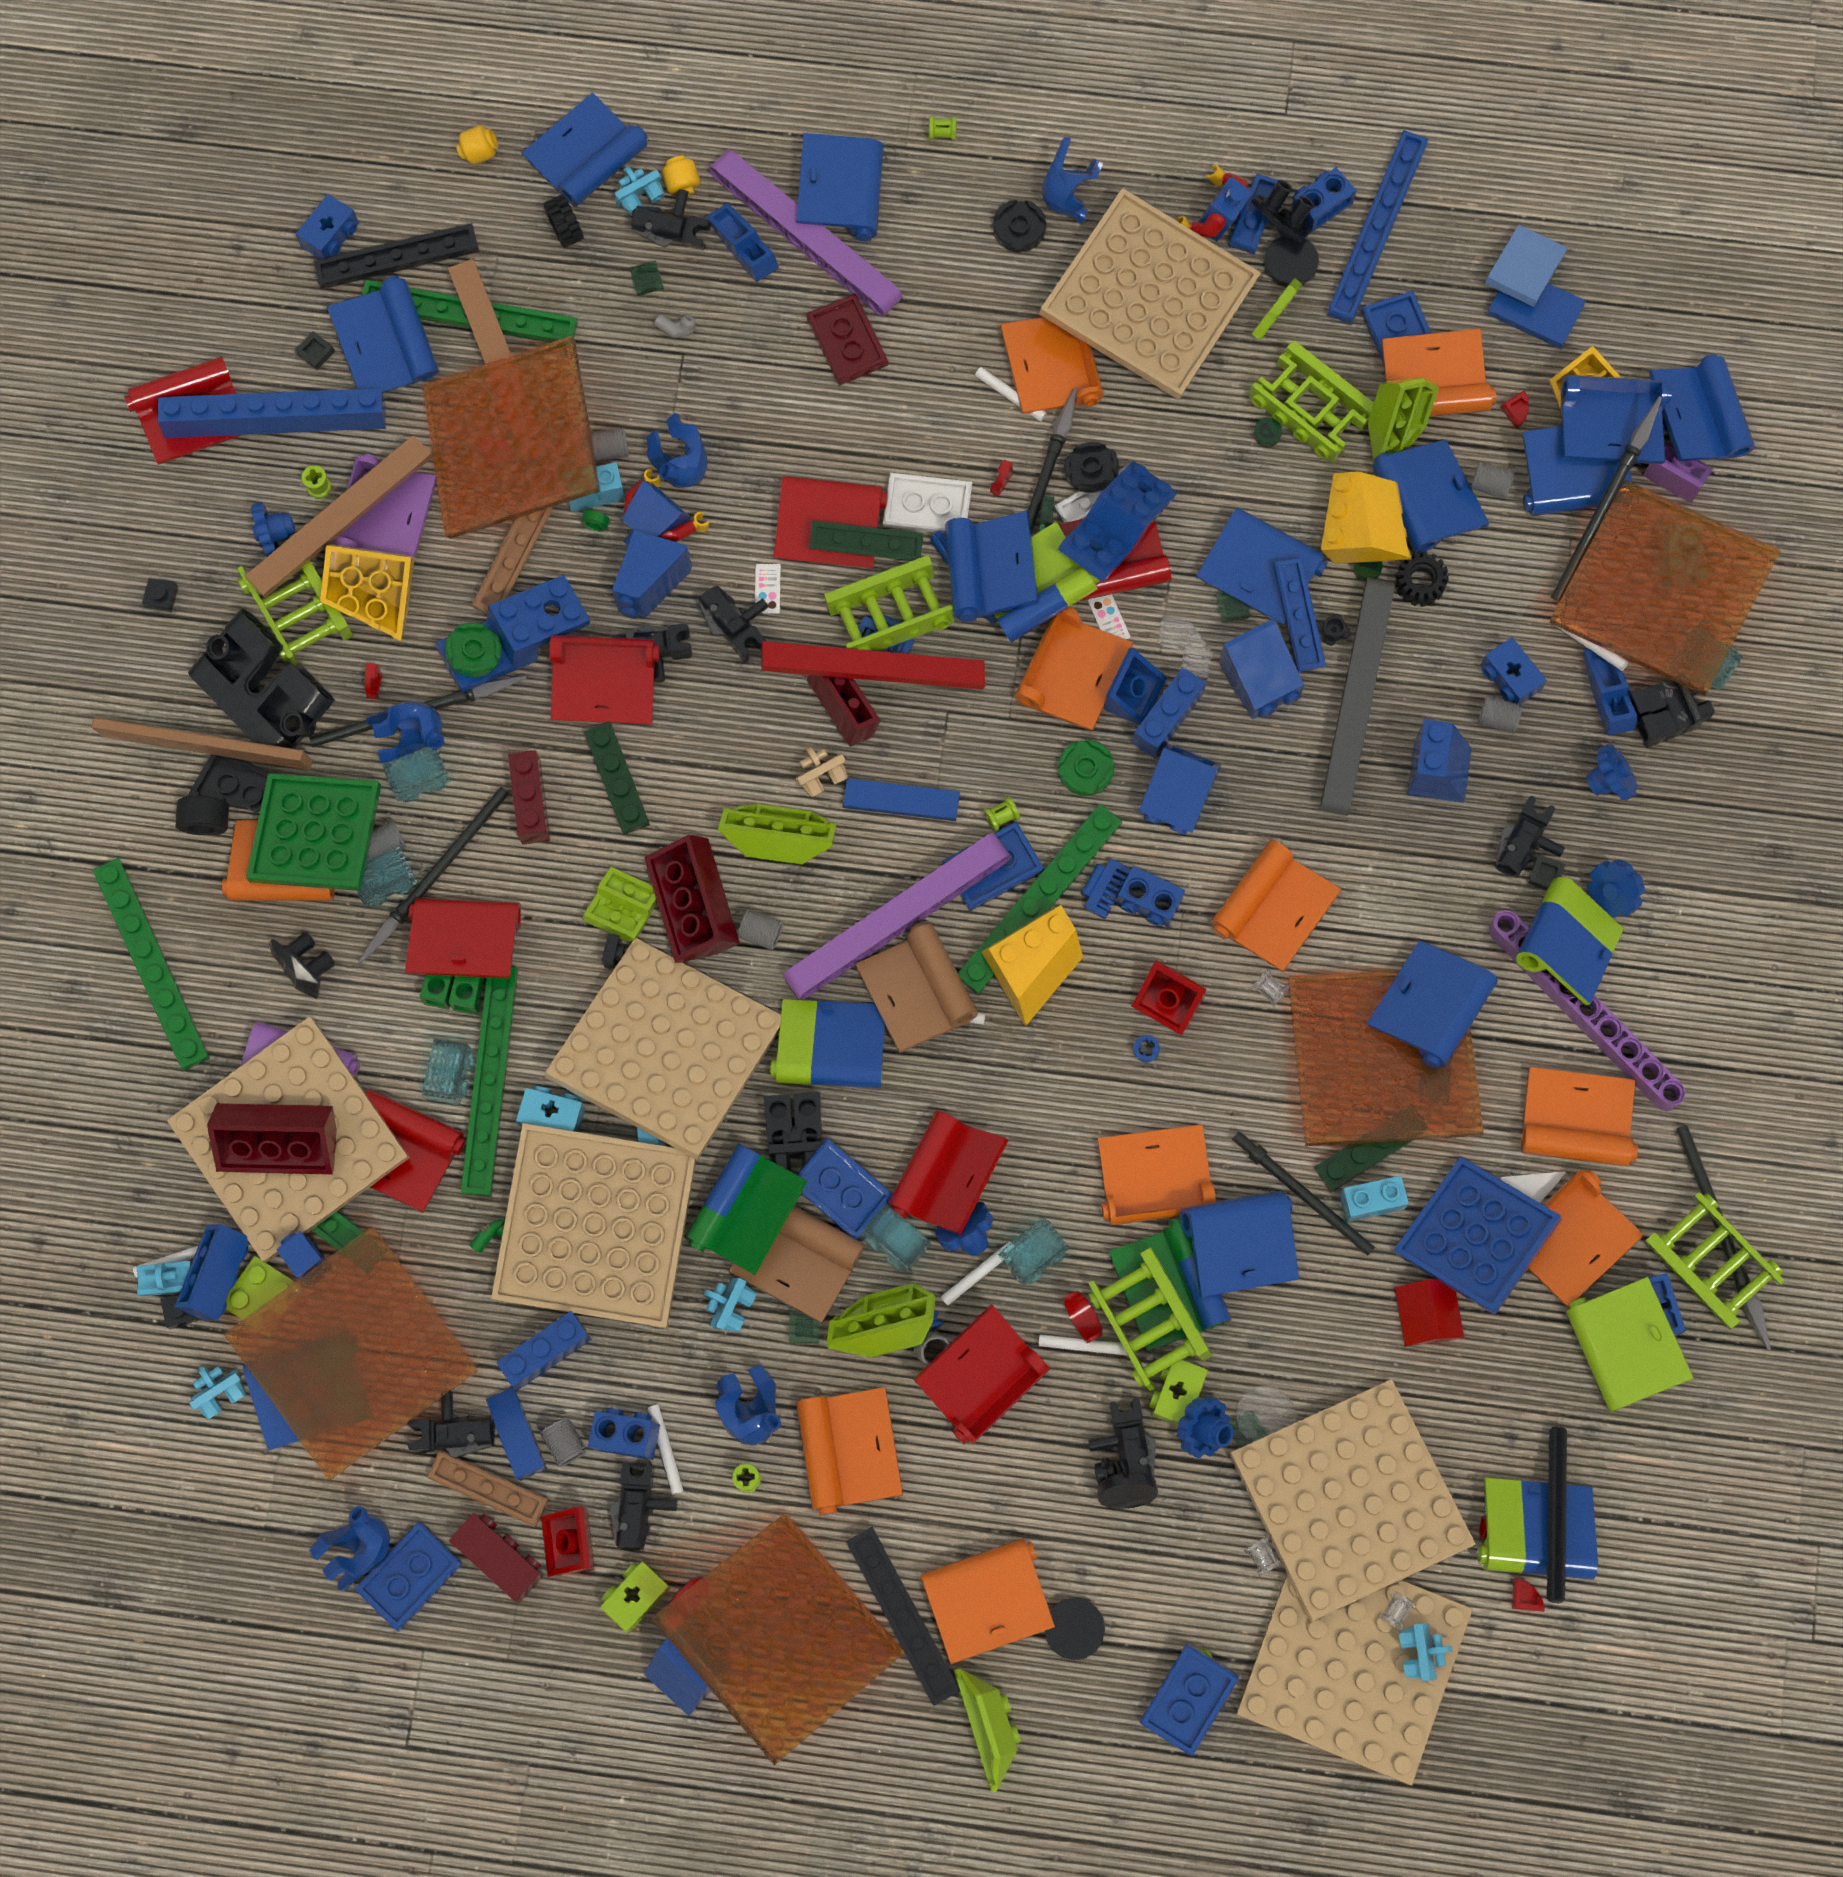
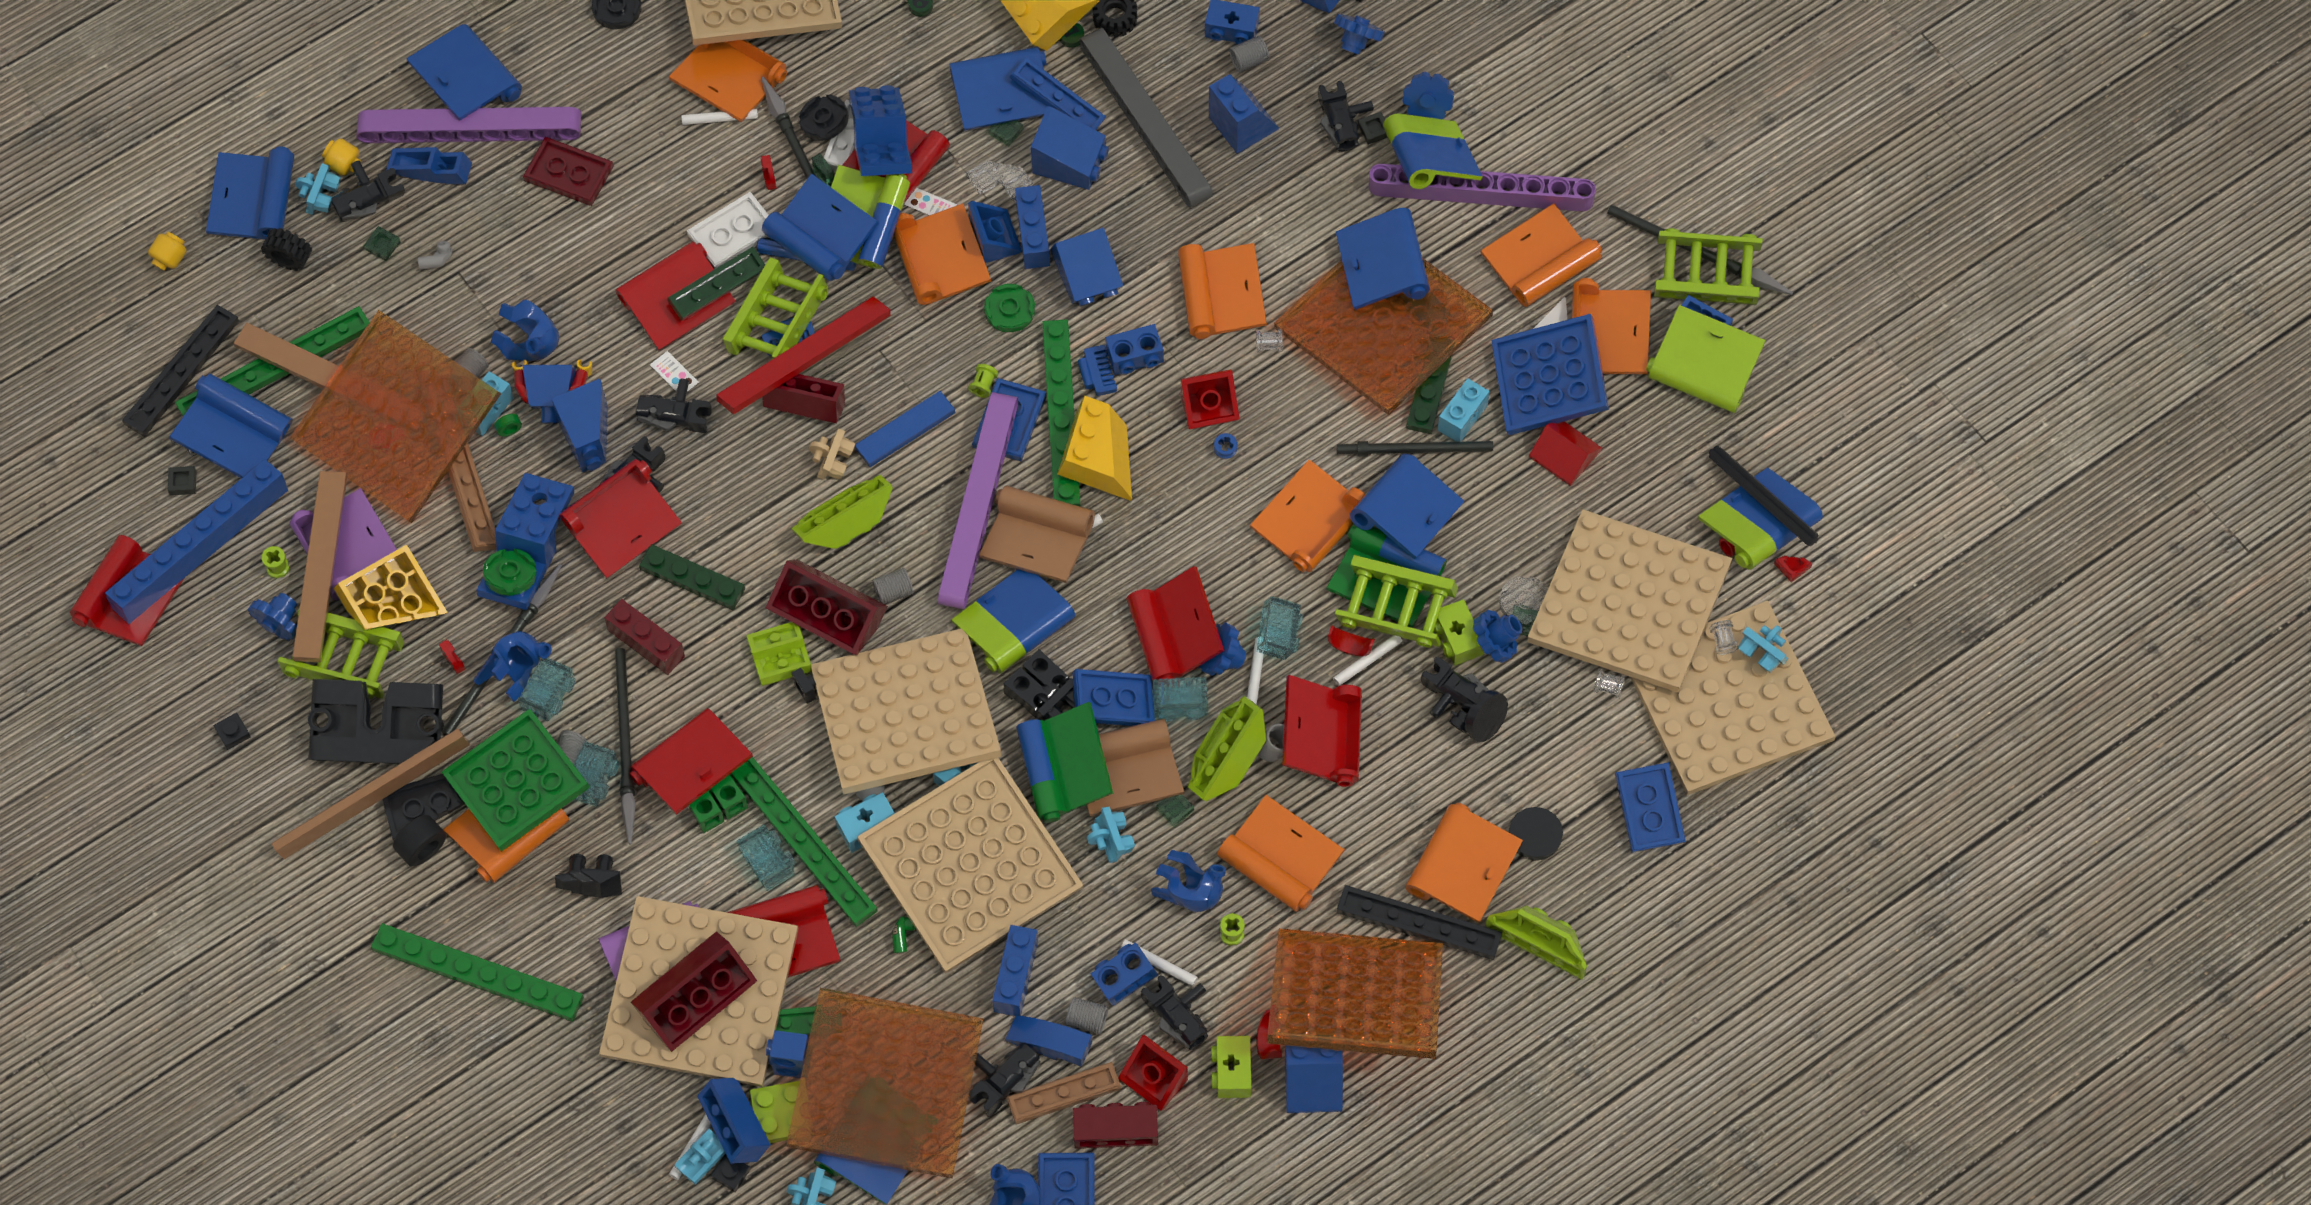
camera: 45 degrees left, 10 degrees down
(327, 228) = (110, 391): blue brick -> none
(1334, 621) = (1088, 84): black plate -> none

